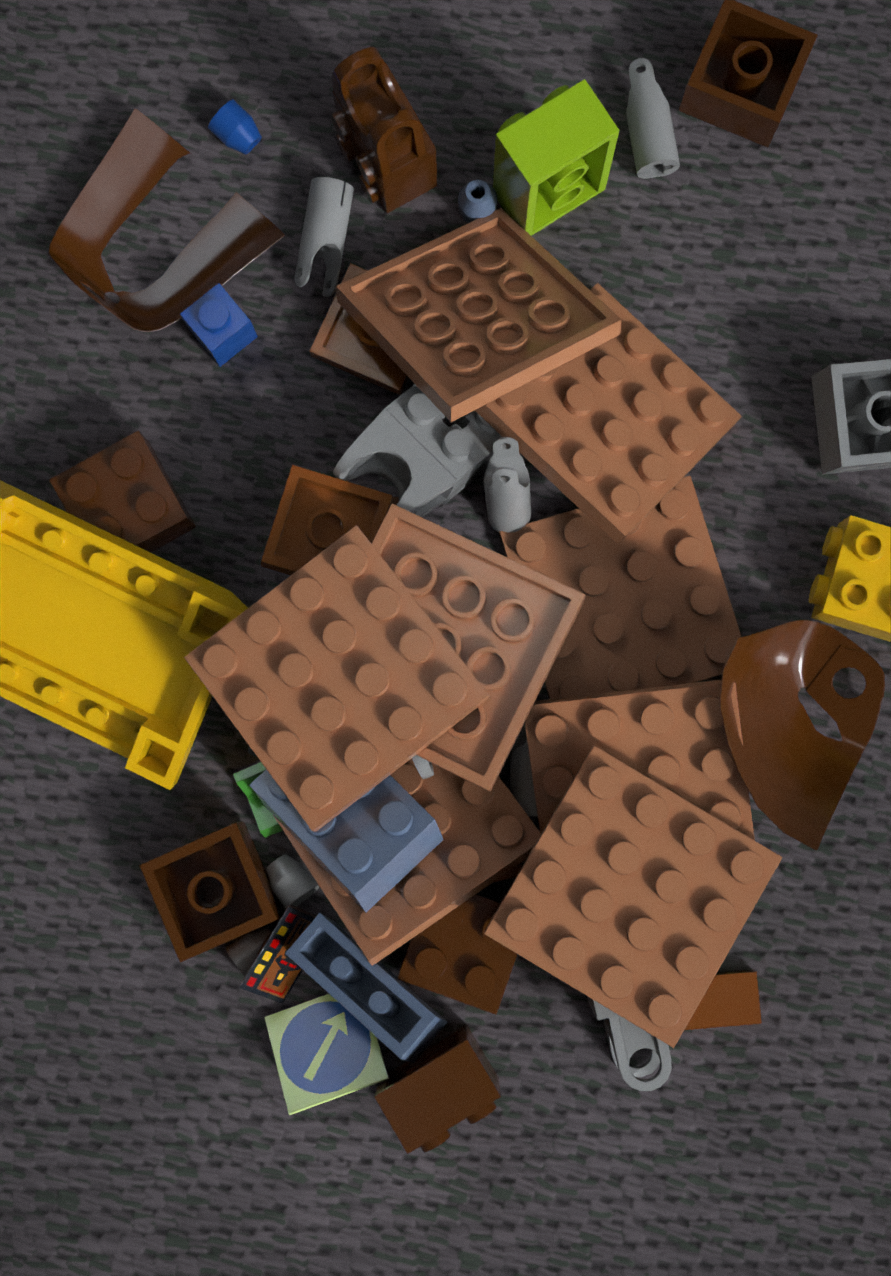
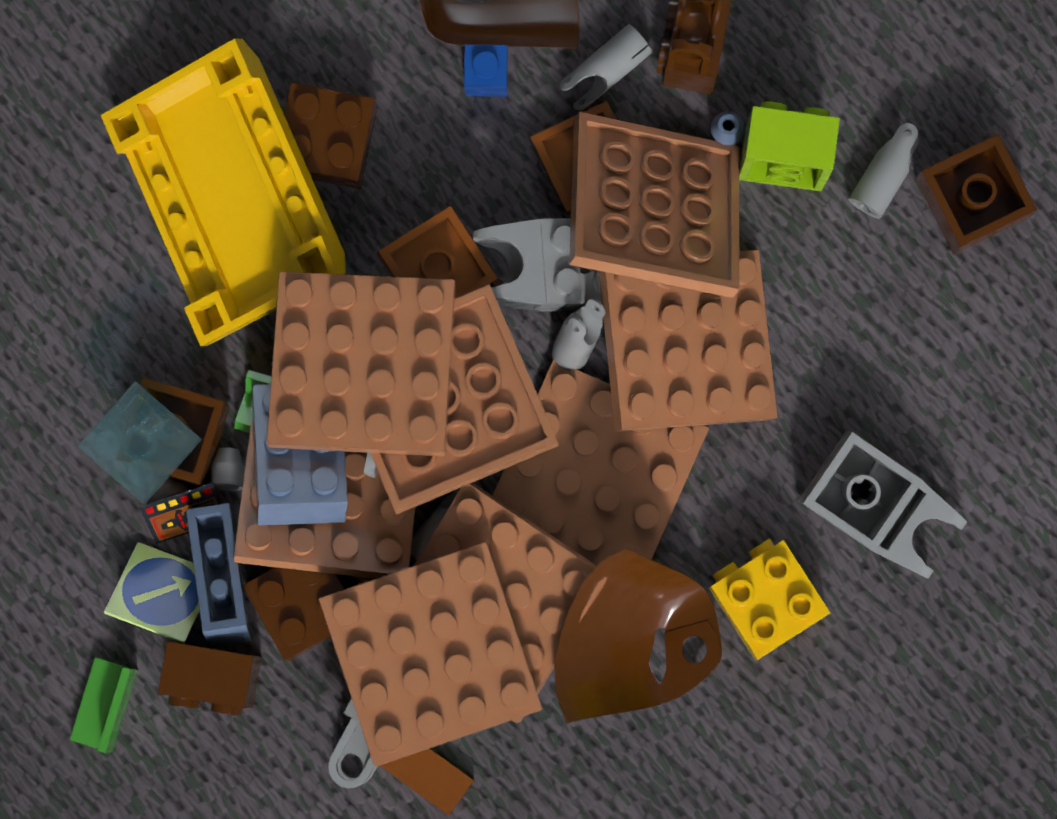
camera: 40 degrees right, 0 degrees up
(188, 929) = (139, 442): none -> clear light blue hinge
(361, 1196) = (103, 705): none -> bright green panel

